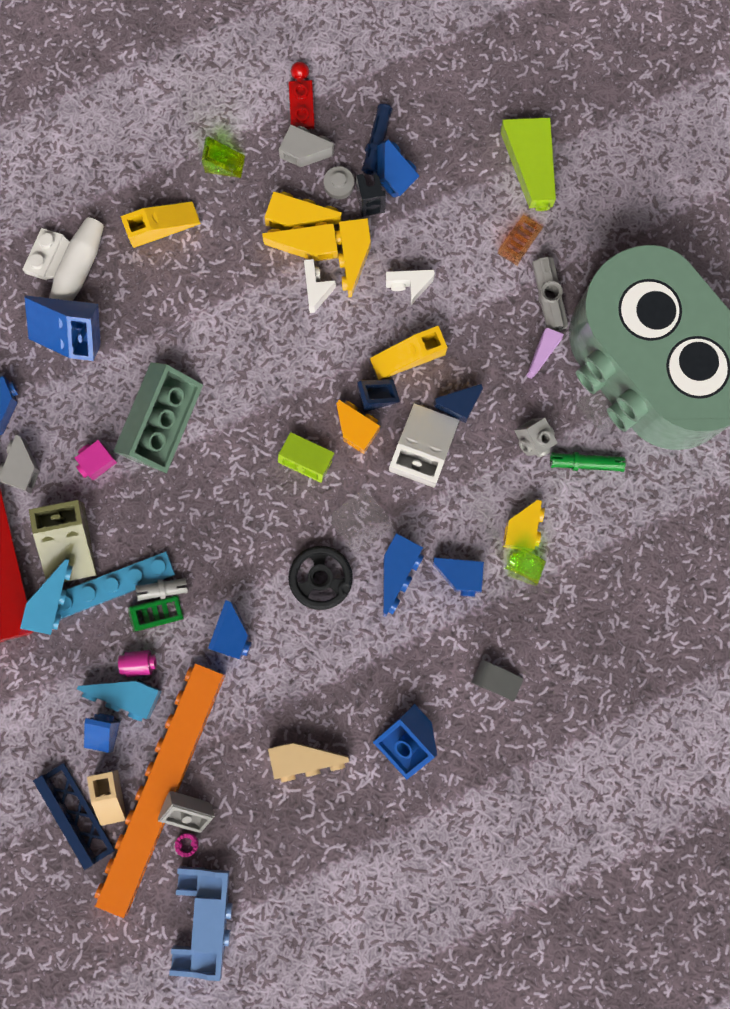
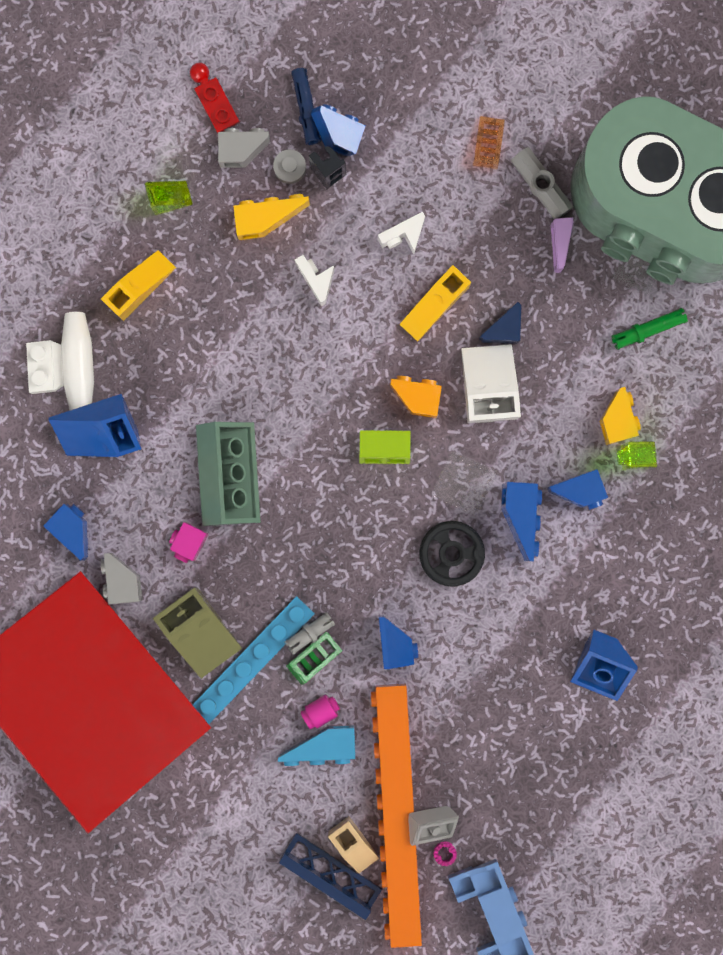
camera: 20 degrees left, 5 degrees up
(42, 606) = (209, 700): dark azure slope -> none
(100, 732) = (319, 790): blue slope -> none
(298, 758) = (511, 728): tan slope -> none
(307, 242) = (290, 239): yellow slope -> none
(355, 244) = (334, 220): yellow slope -> none
(377, 394) = (423, 355): dark blue slope -> none
(497, 680) = (658, 572): dark grey panel -> none
(532, 158) = (463, 56): lime slope -> none
(536, 437) = (591, 328): light grey brick -> none

